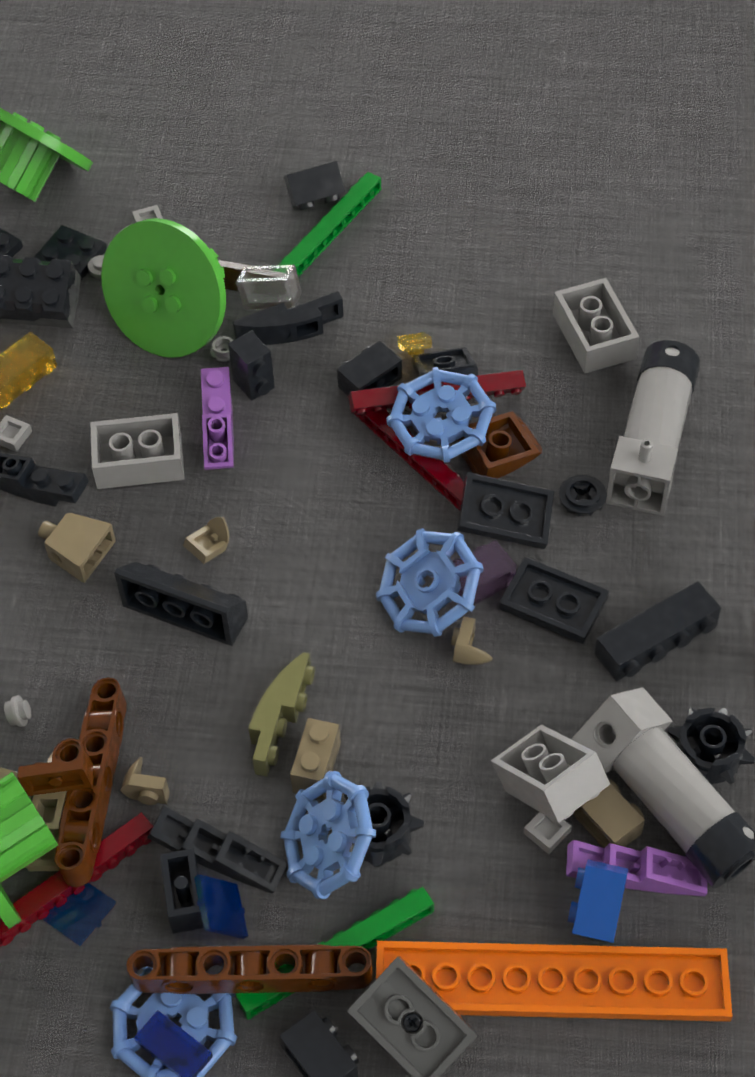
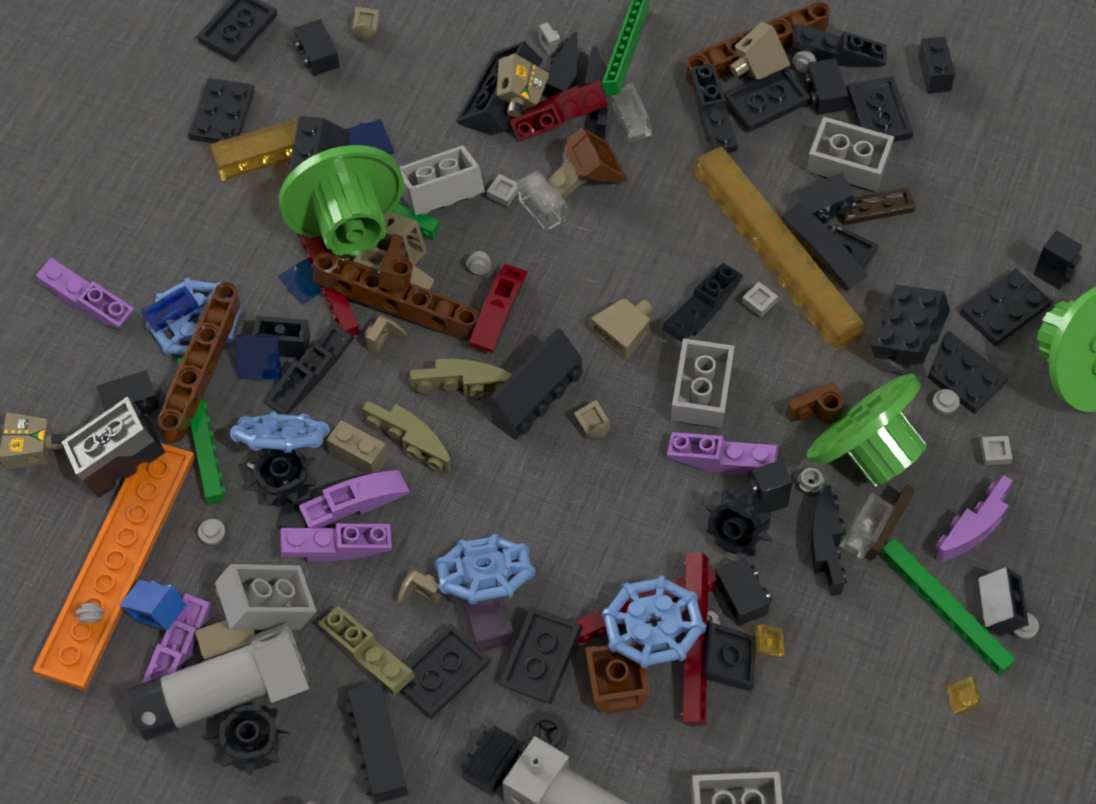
camera: 105 degrees right, 5 degrees up
(79, 665) = (497, 308): none -> dark red slope
(132, 355) = (816, 402): none -> reddish brown plate
(185, 679) = (451, 374): none -> olive slope
(240, 219) = (977, 524): none -> medium lavender slope
(299, 380) = (739, 522): none -> black brick
(386, 738) = (354, 495): none -> medium lavender slope
(415, 200) = (964, 695): none -> clear yellow plate
(424, 801) = (292, 517): none -> black tile
(441, 743) = (336, 543): none -> medium lavender slope
(472, 886) = (211, 532): none -> light grey plate
(563, 670) = (365, 651): none -> olive slope
(632, 527) = (491, 760): none -> black brick
(640, 966) = (90, 613): none -> light grey plate

